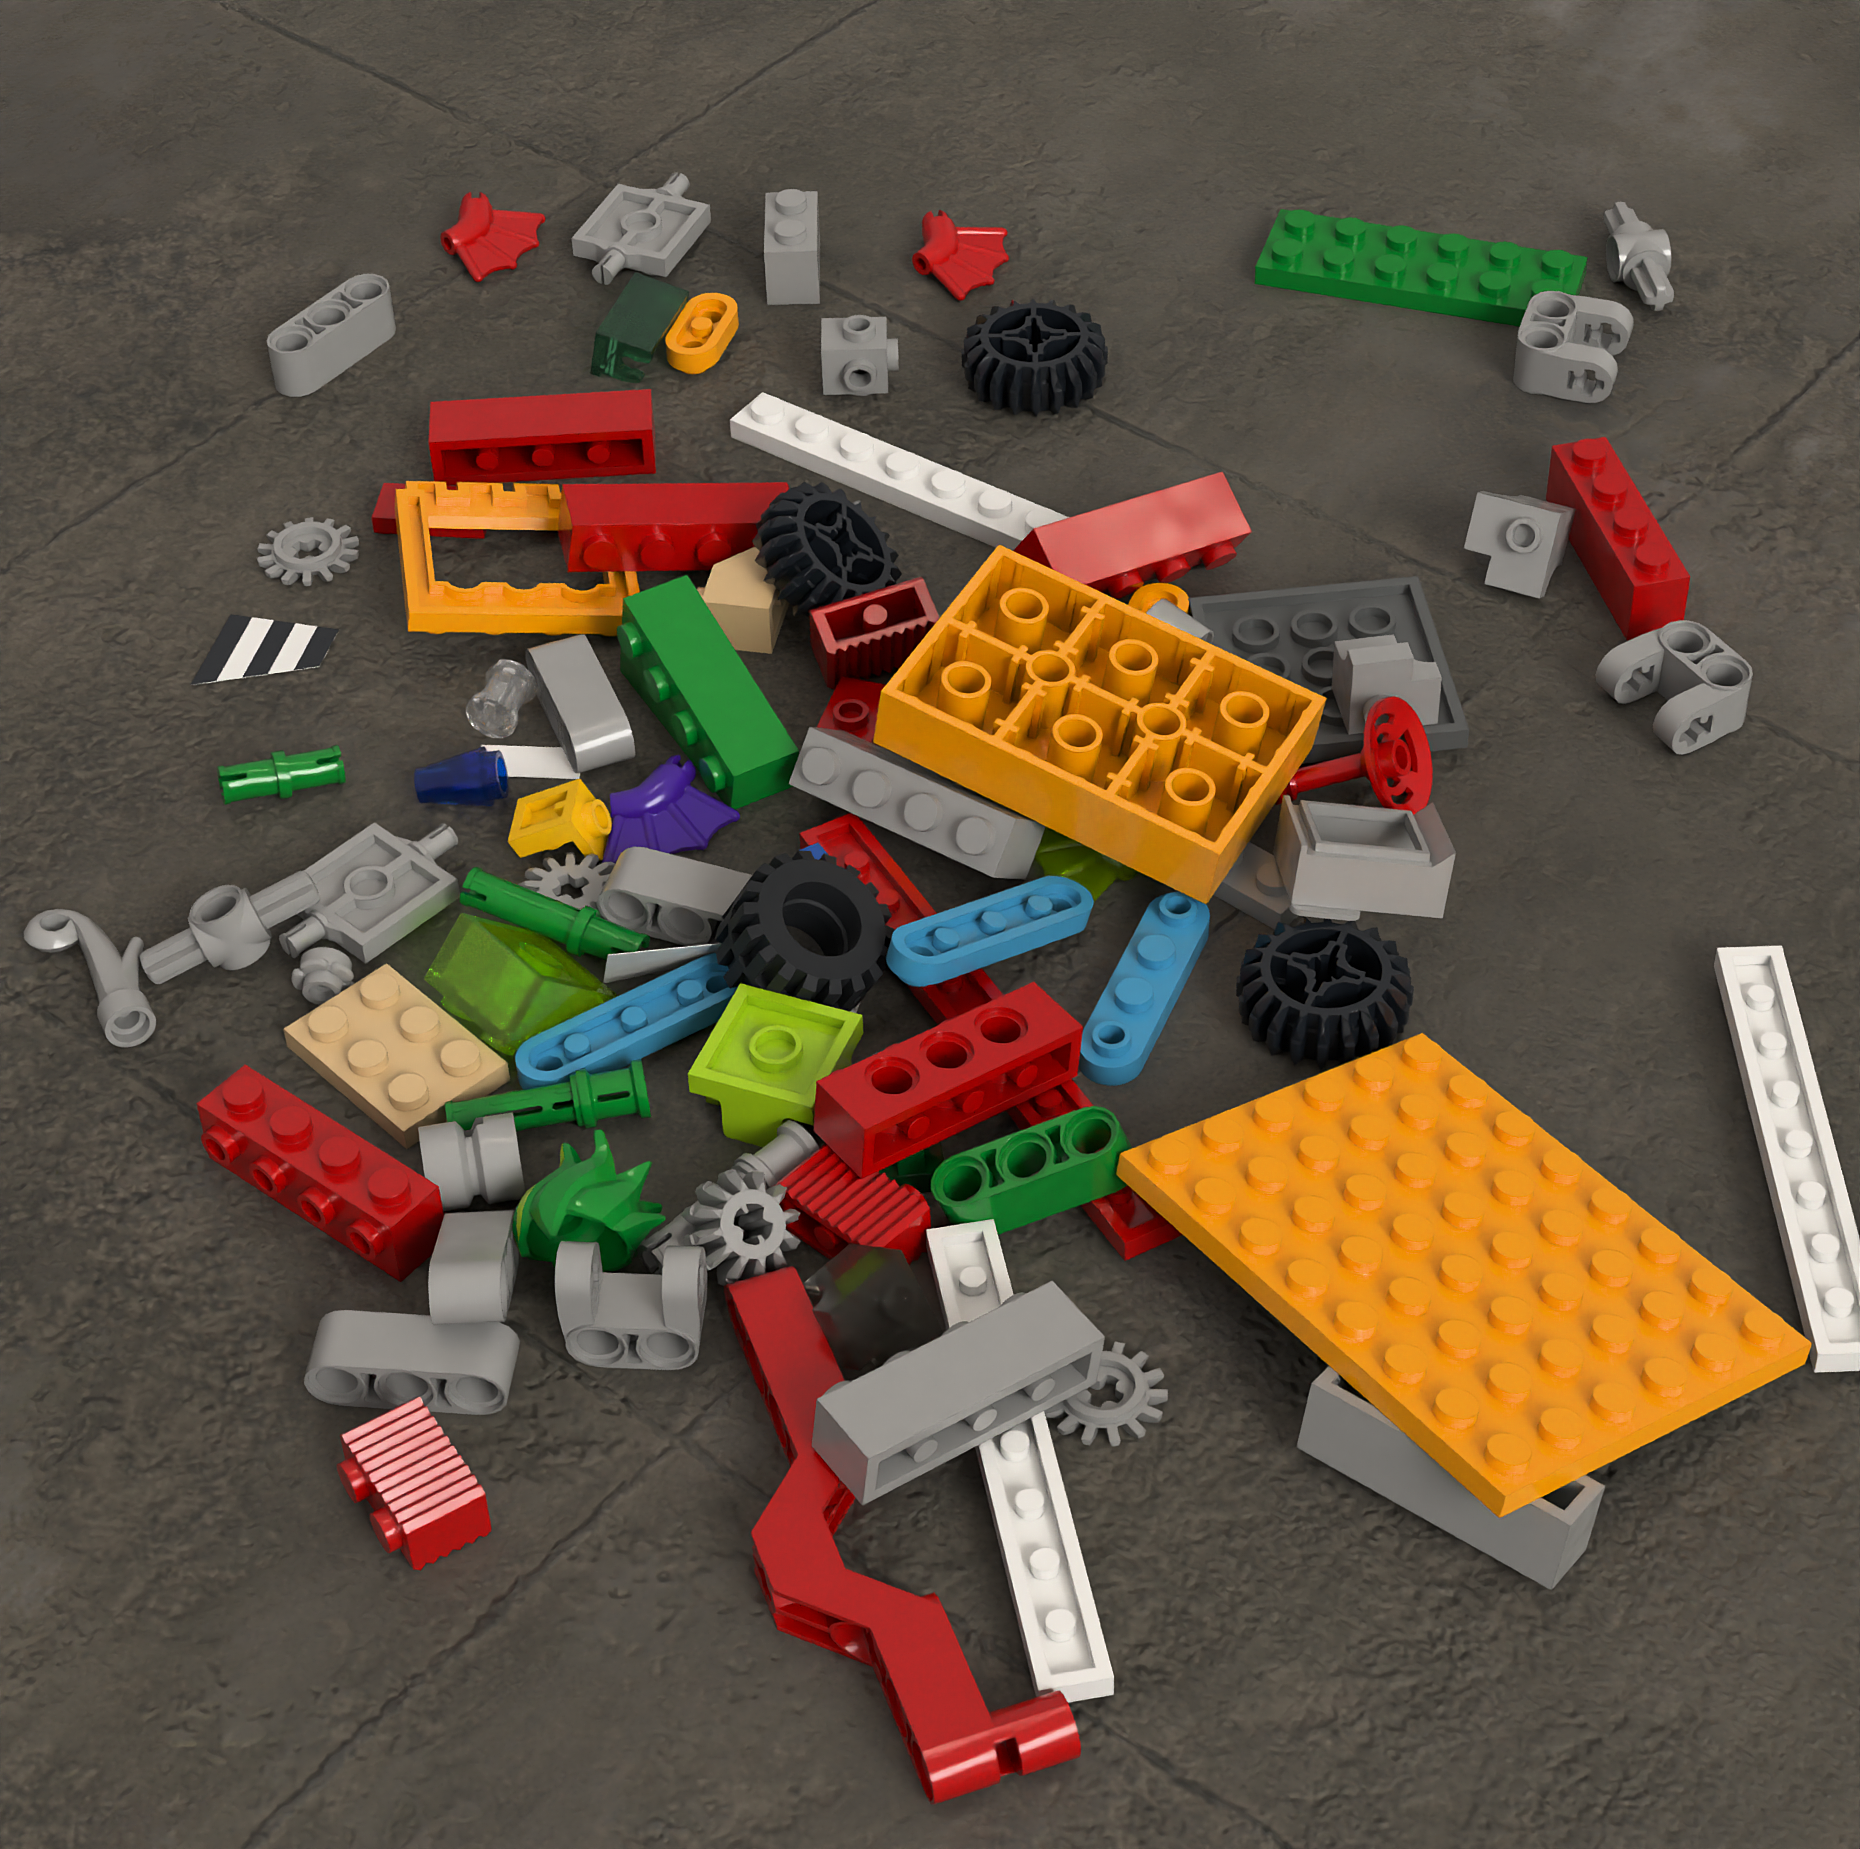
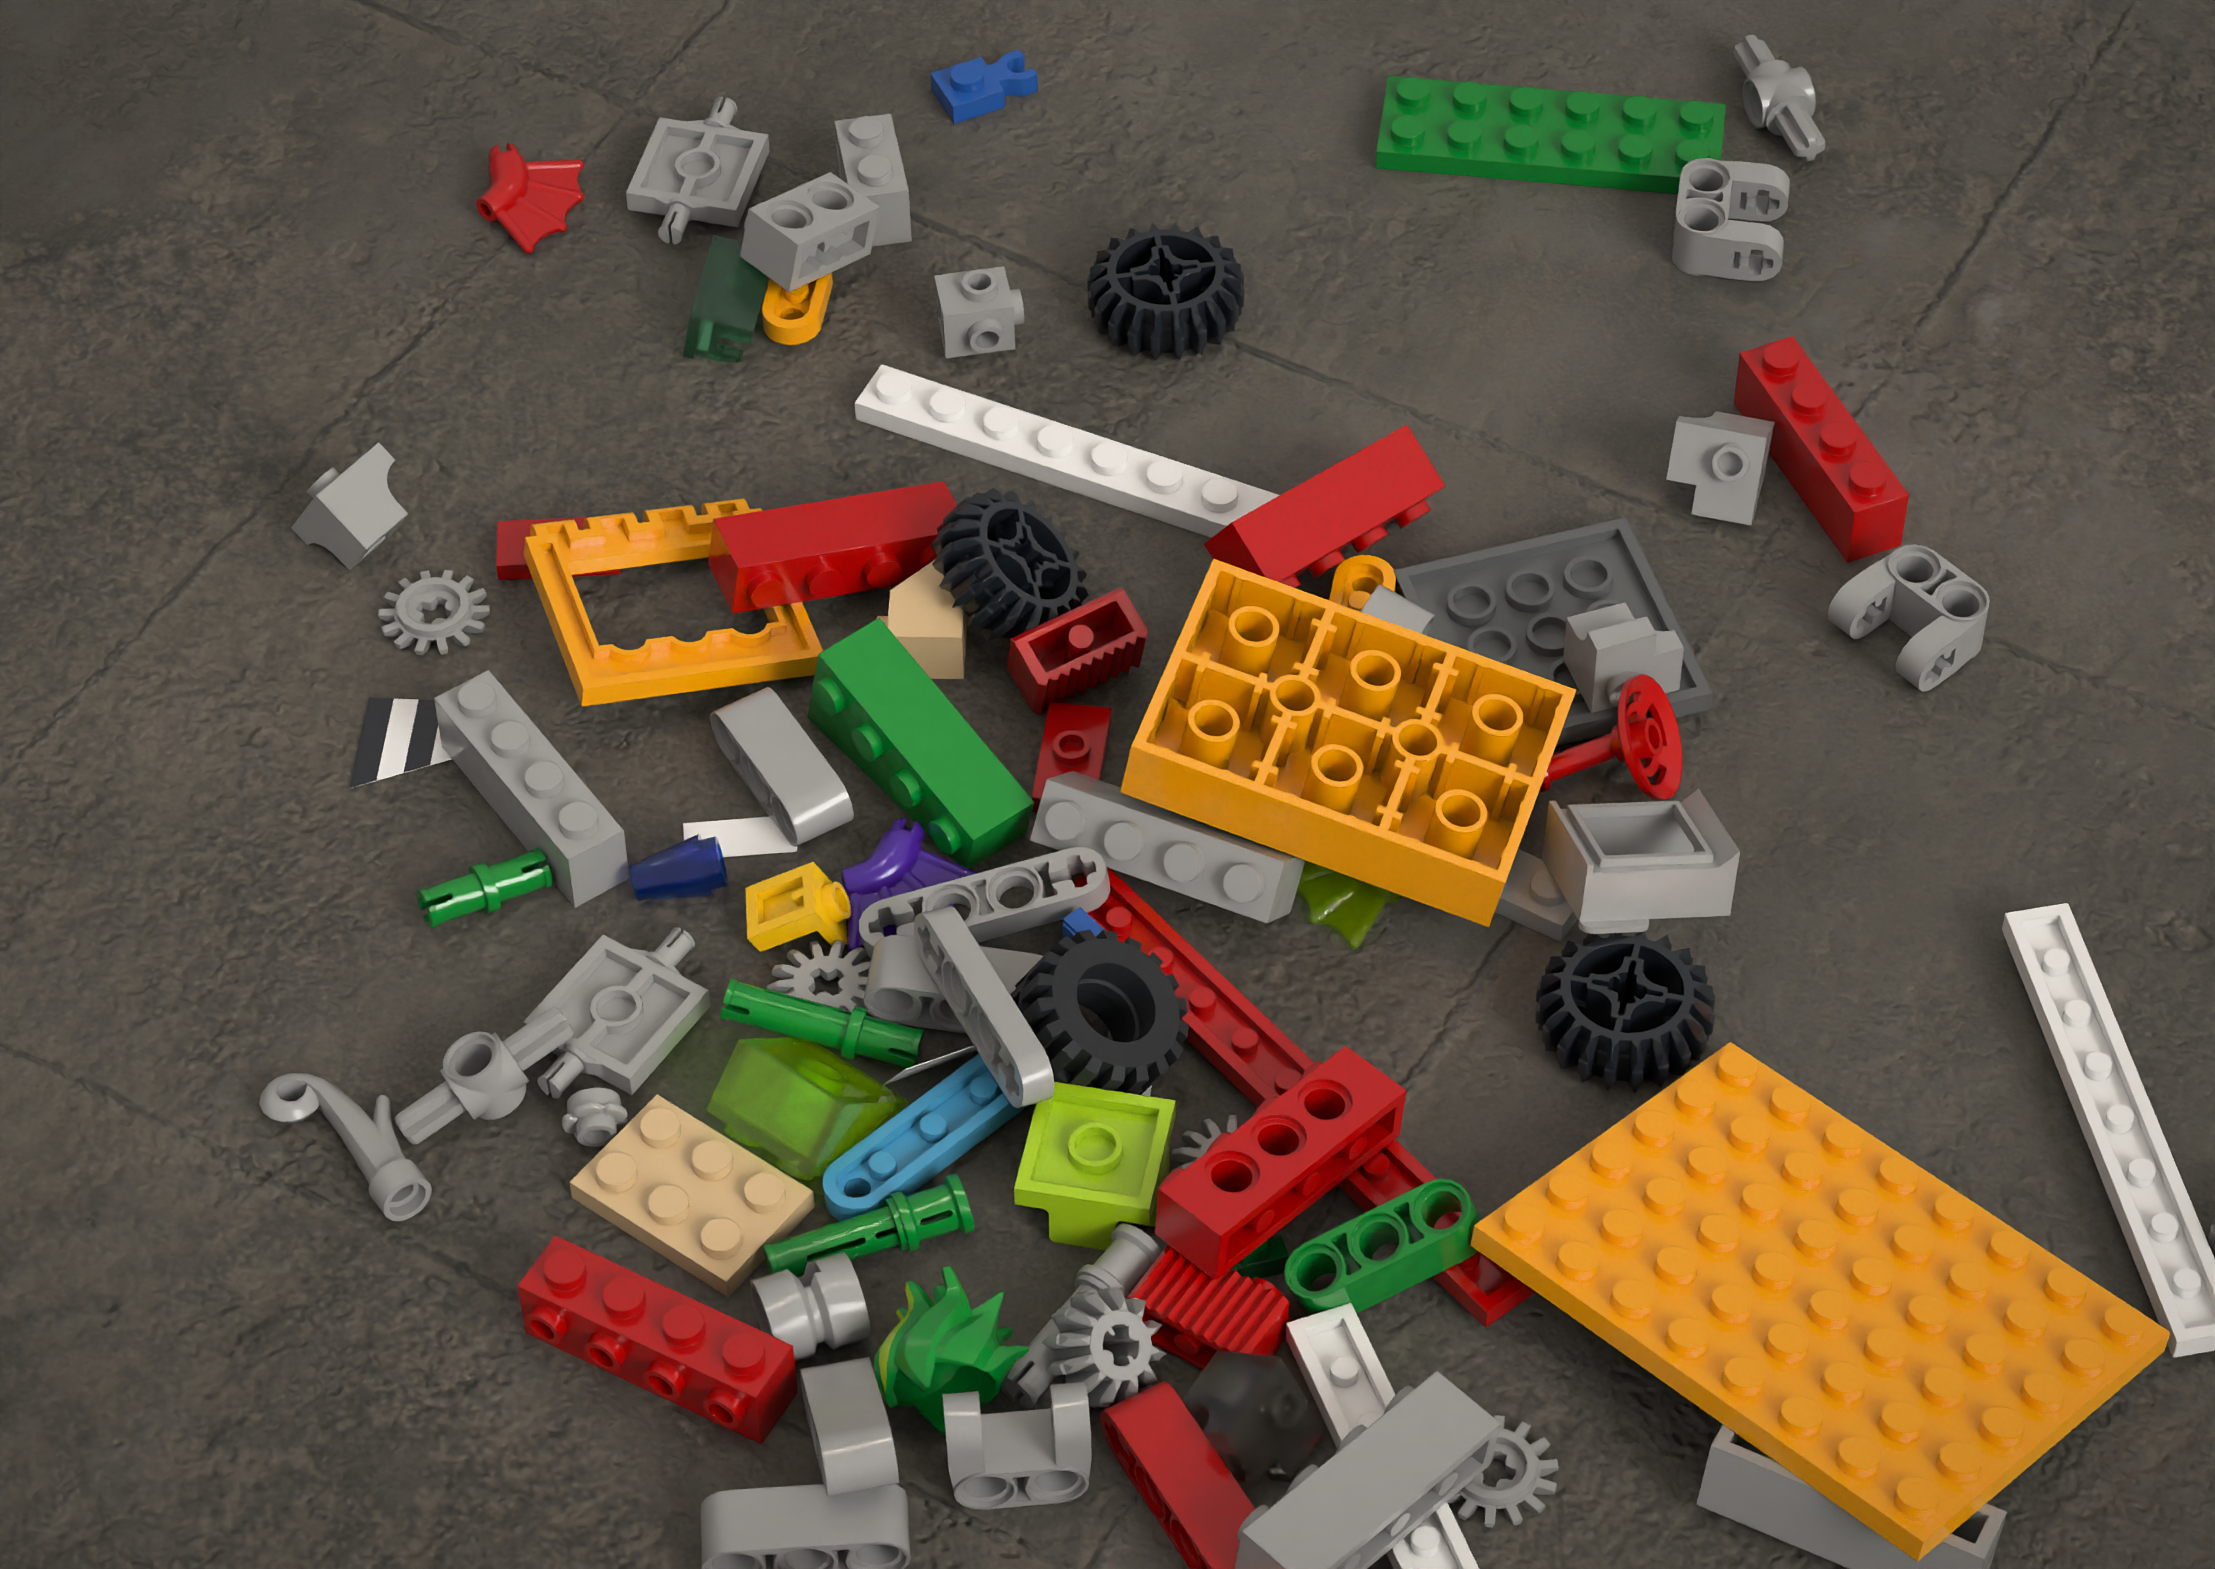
camera: 10 degrees left, 5 degrees up
(254, 456) = (352, 509): none -> light grey brick
(331, 335) = (390, 343): light grey beam -> none
(346, 695) = (532, 788): none -> light grey brick
(497, 706) = (699, 761): clear bush -> none
(543, 437) = (659, 447): red brick -> none
(697, 911) = (984, 1007): none -> light grey beam
(719, 275) = (809, 231): none -> light grey brick
(735, 820) = (983, 891): none -> light grey beam
(908, 189) = (980, 88): none -> blue plate
(959, 255) = (1052, 165): red arm -> none
(988, 930) = (1278, 985): dark azure plate -> none
(1144, 989) = (1441, 1022): dark azure plate -> none

